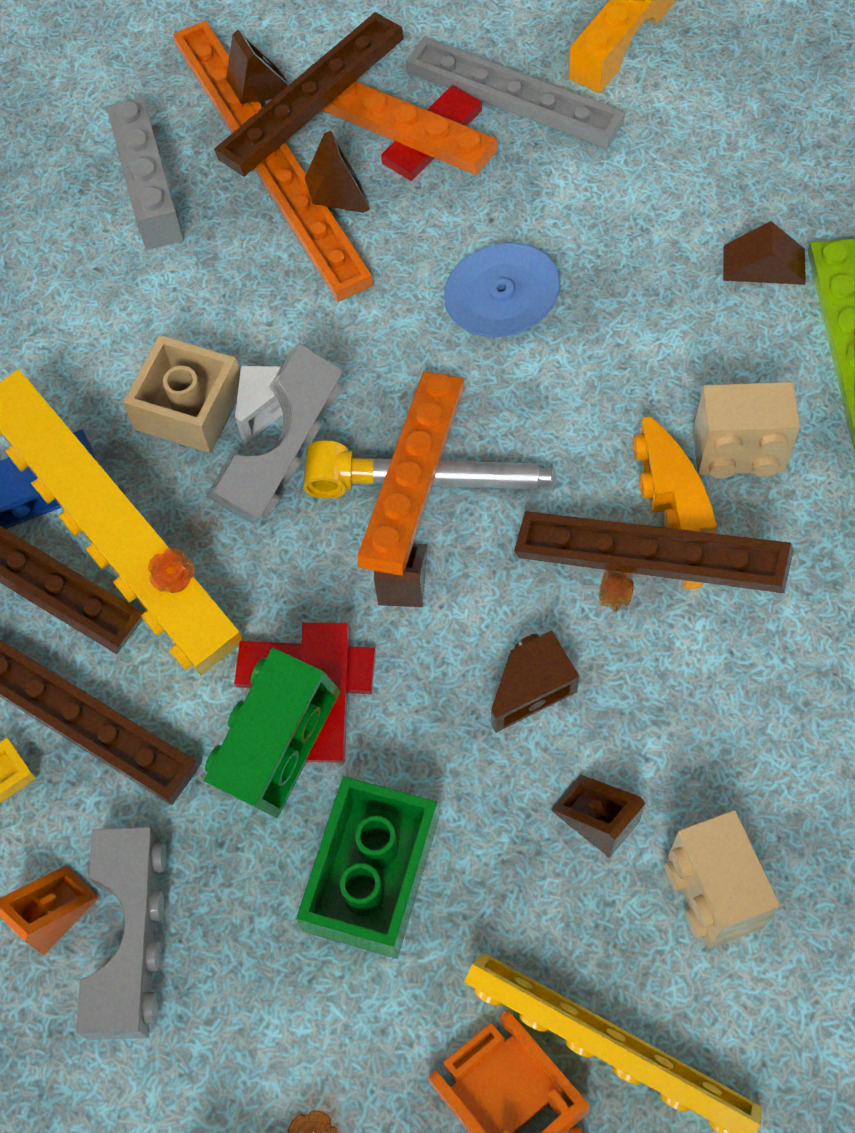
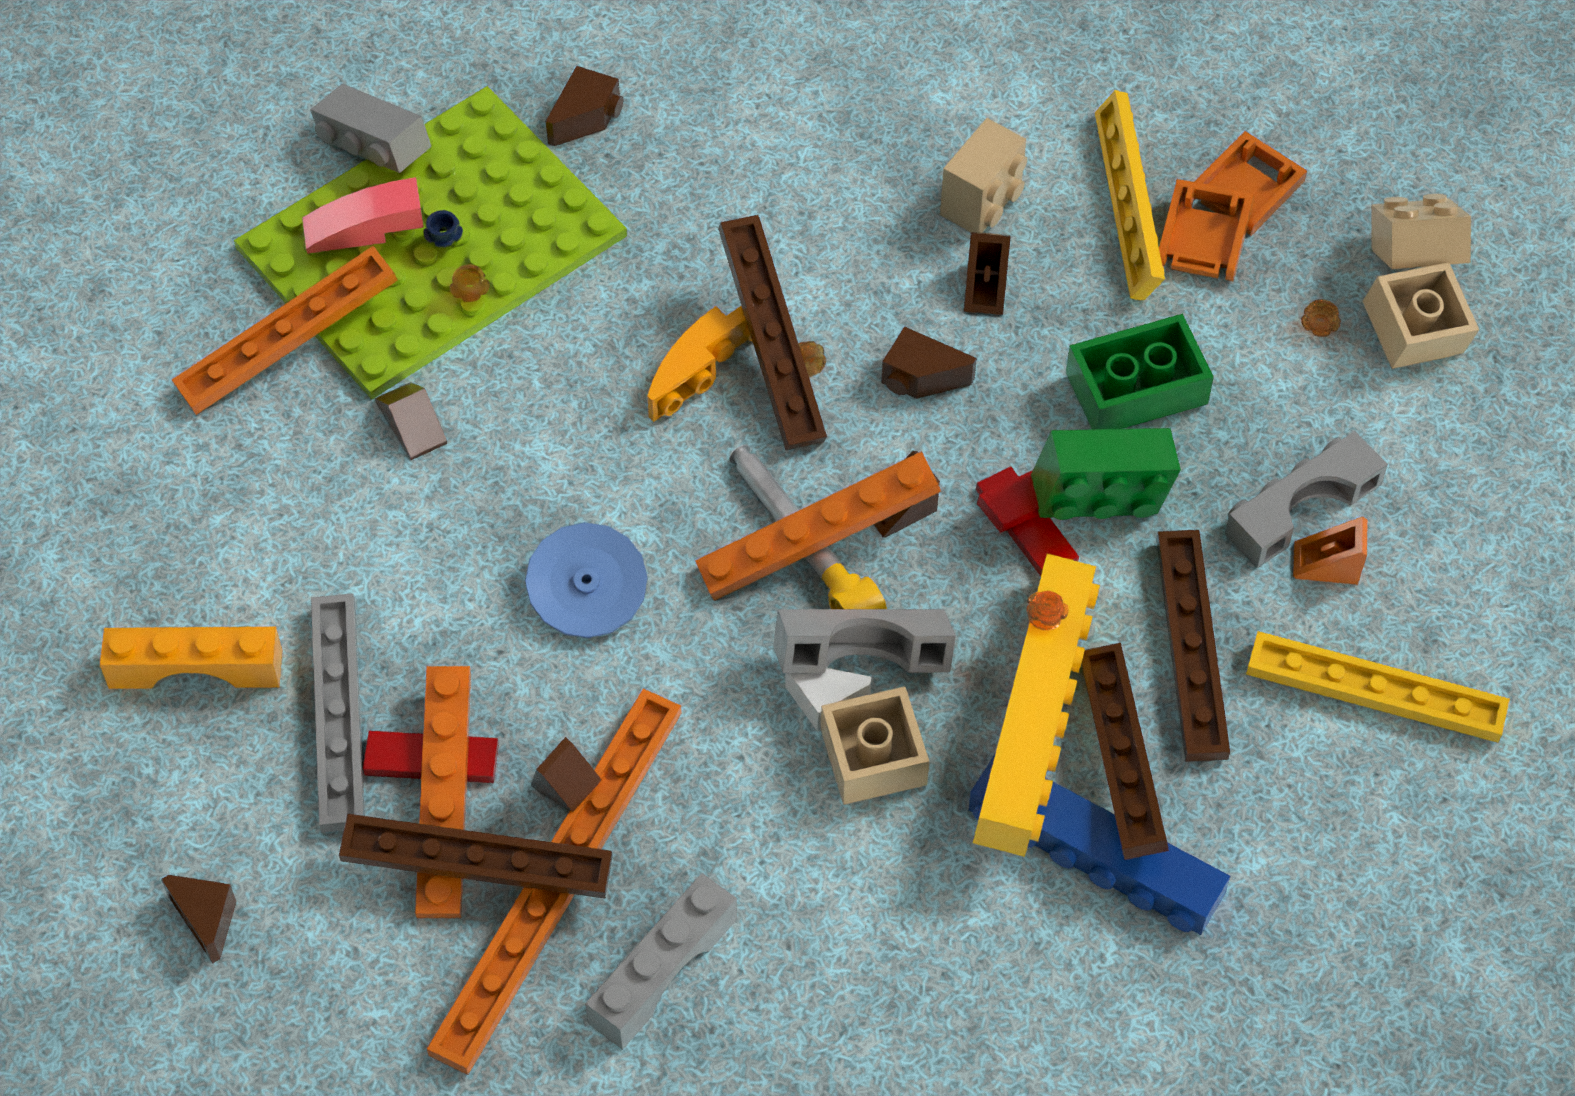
camera: 130 degrees left, 5 degrees down
(252, 72) = (484, 927): reddish brown slope -> none
(745, 429) = (614, 328): tan brick -> none

